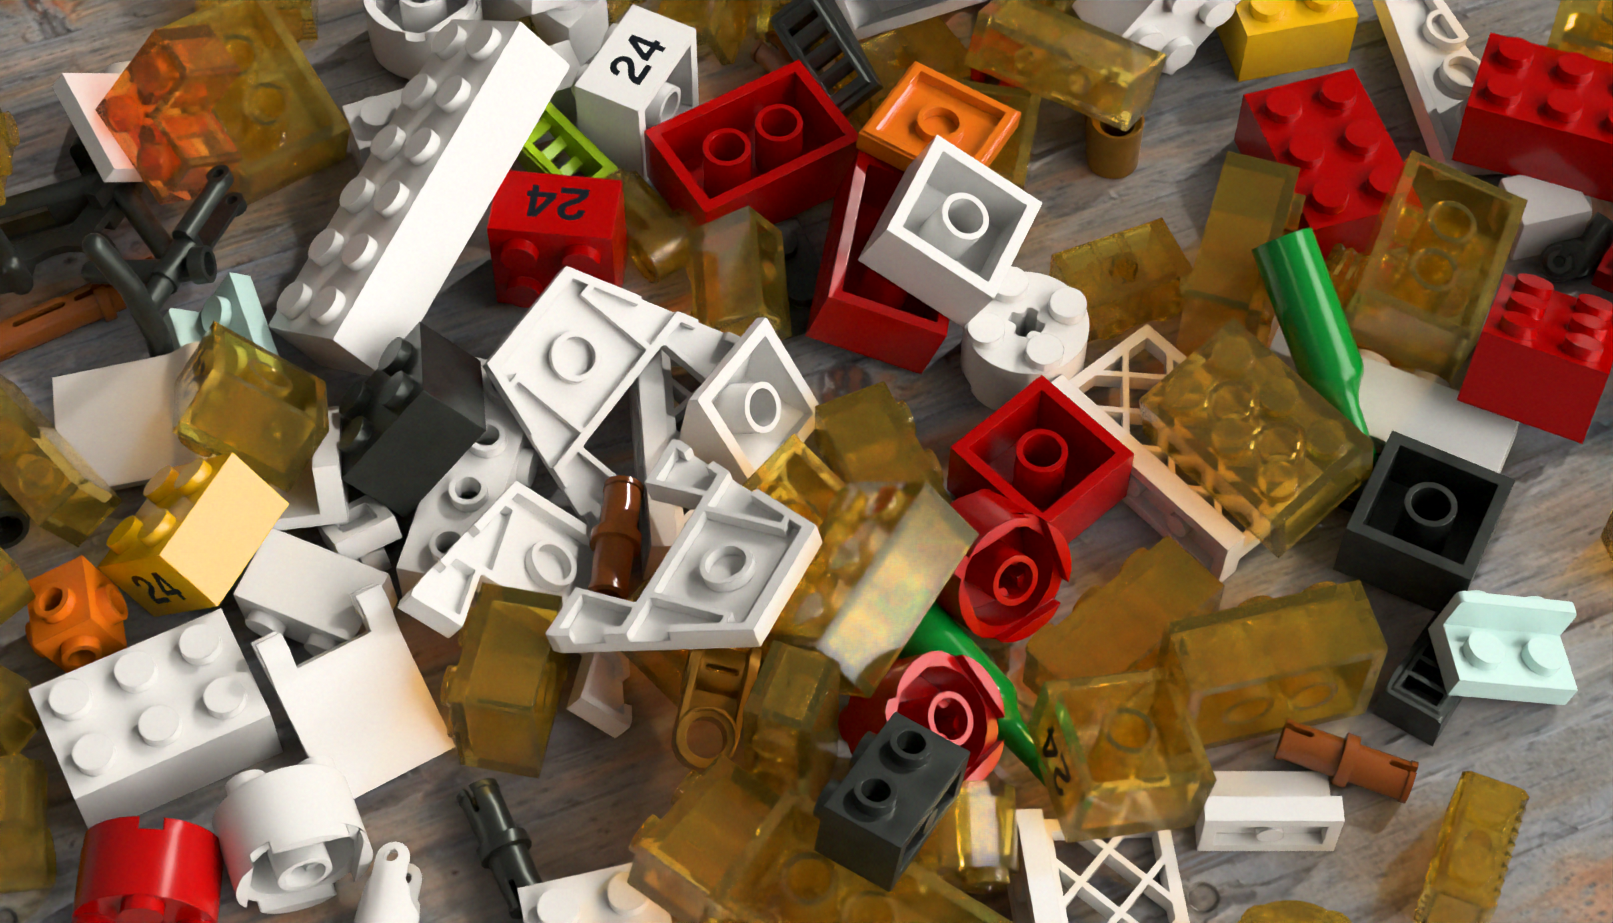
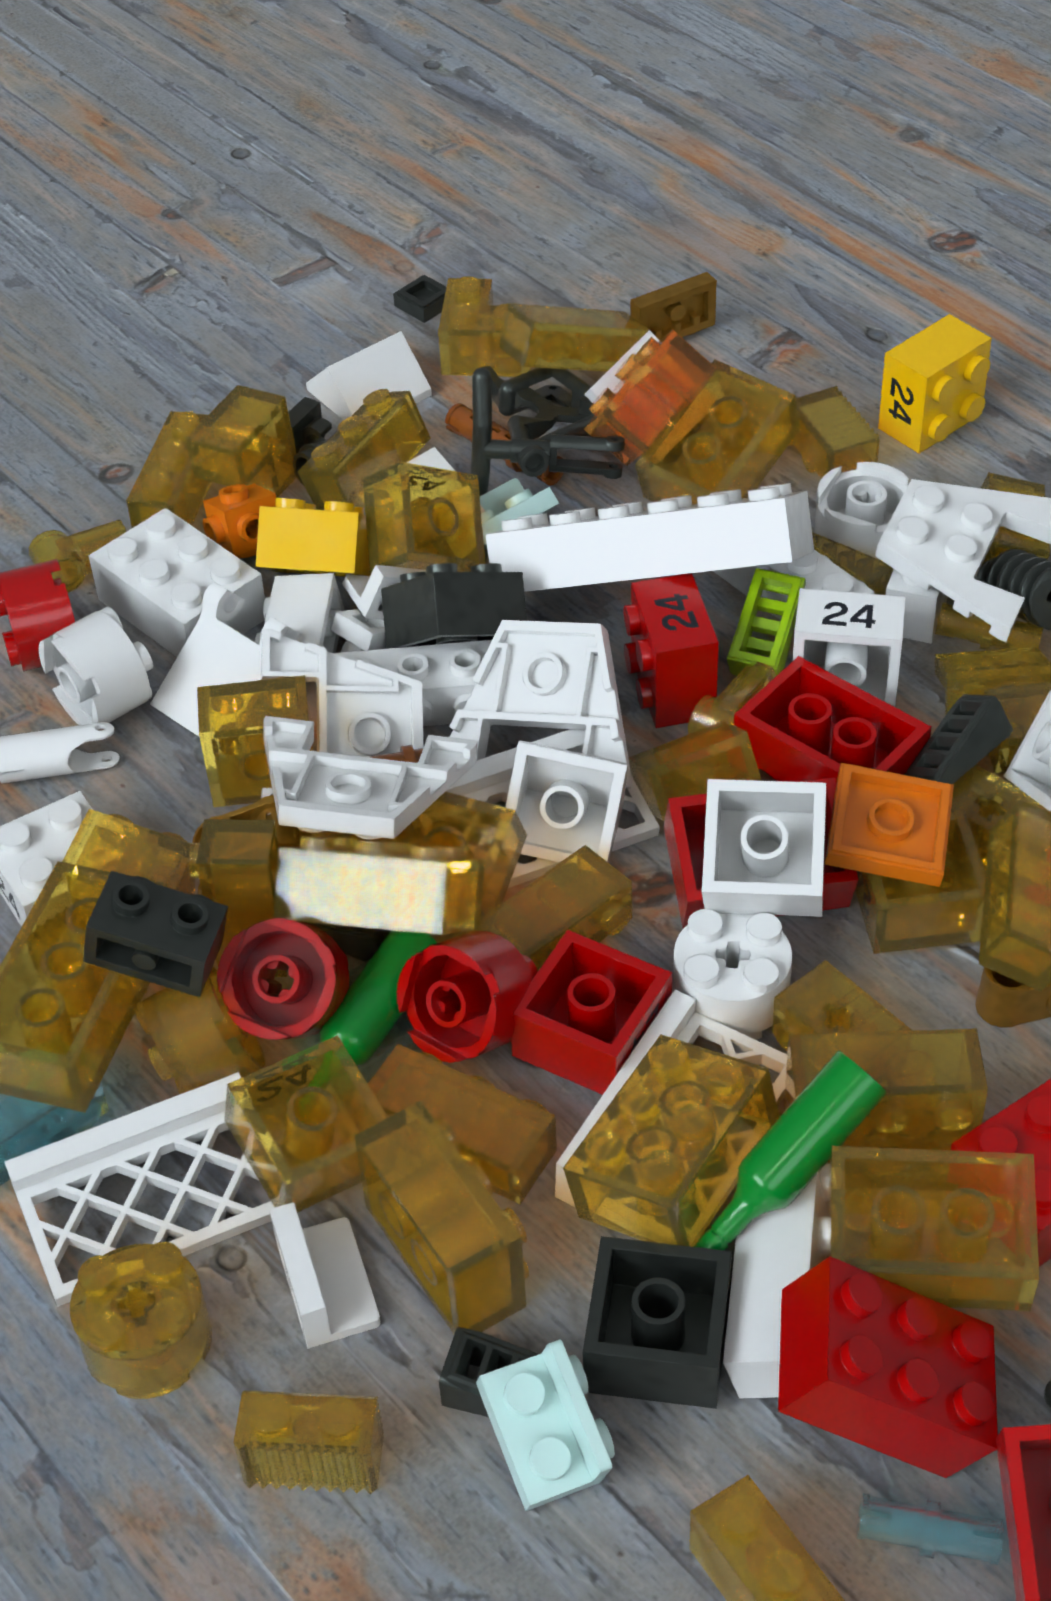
camera: 75 degrees right, 10 degrees down
(501, 843) = (141, 792): pearl dark grey pin -> none
(1346, 760) = (389, 1326): dark orange pin -> none

